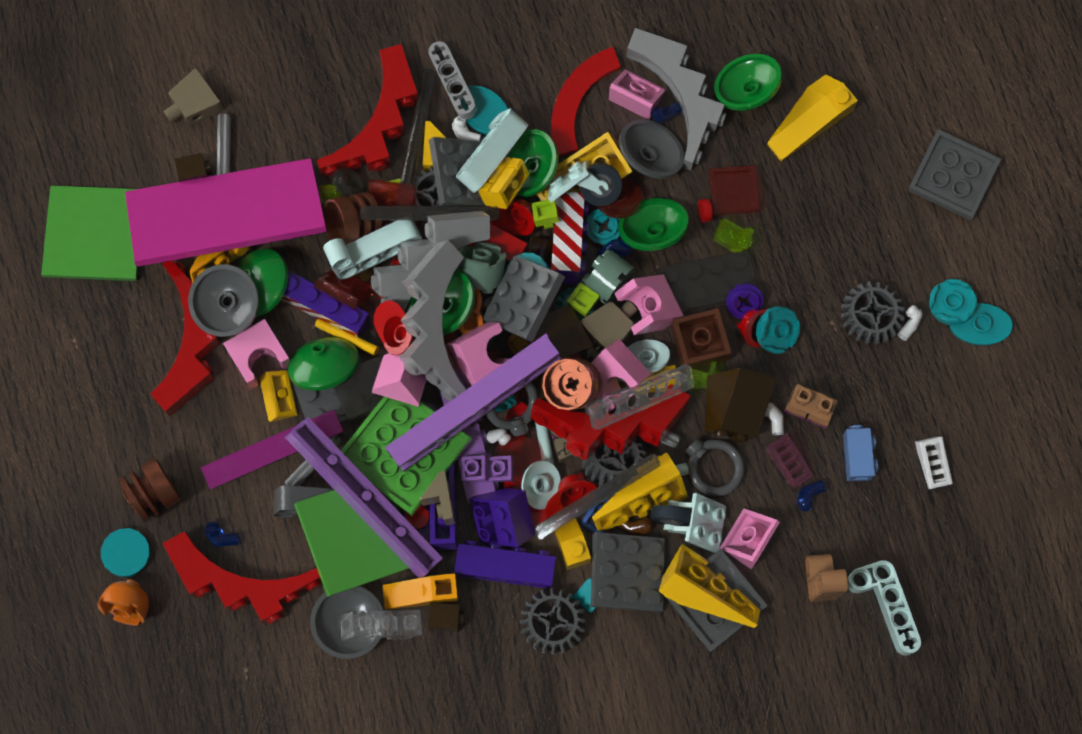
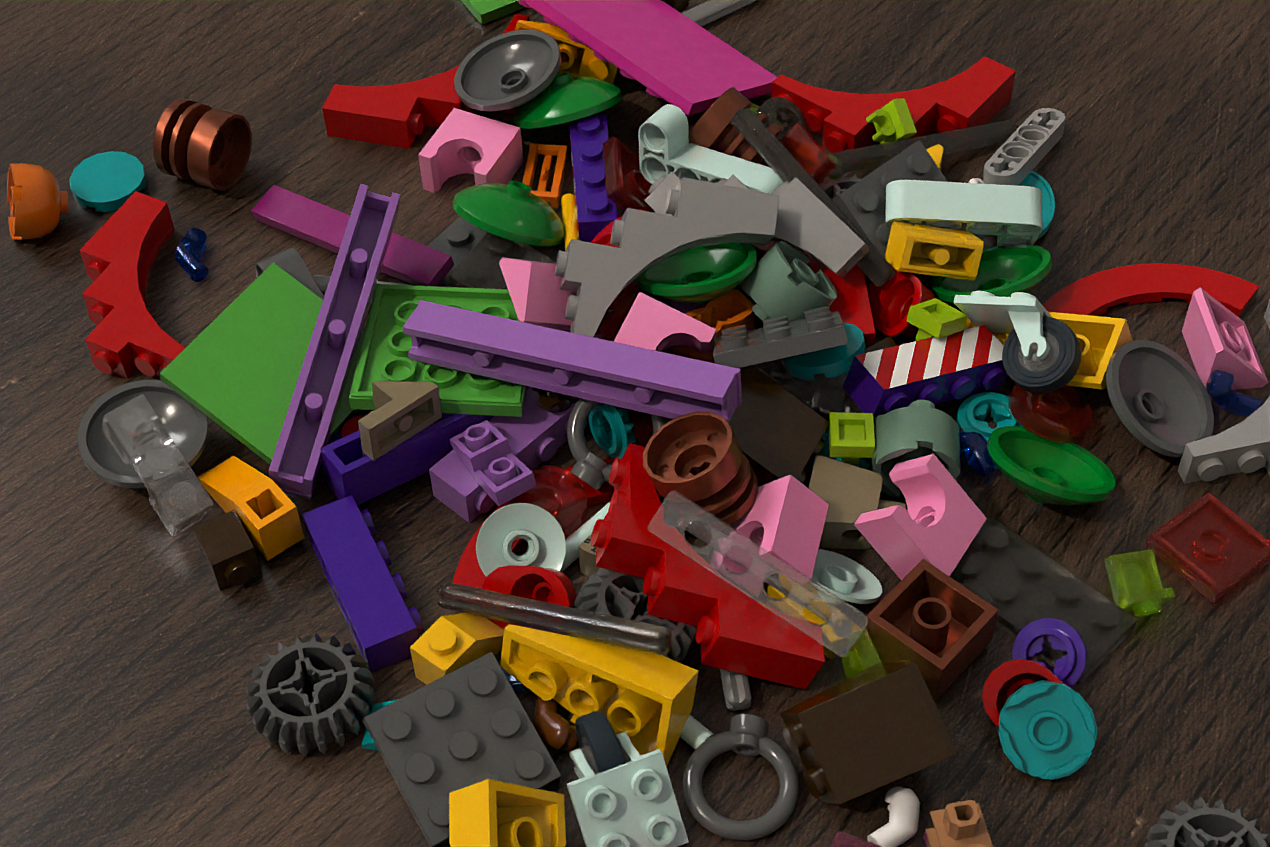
camera: 60 degrees right, 25 degrees down
(278, 395) = (430, 215): yellow slope -> none
(304, 335) = (548, 152): none -> orange tile
(398, 134) = (892, 122): none -> lime tile
(500, 435) = (556, 455): white arm -> none
(503, 517) = (433, 528): dark purple slope -> none
(705, 210) = (1140, 525): red tile -> none

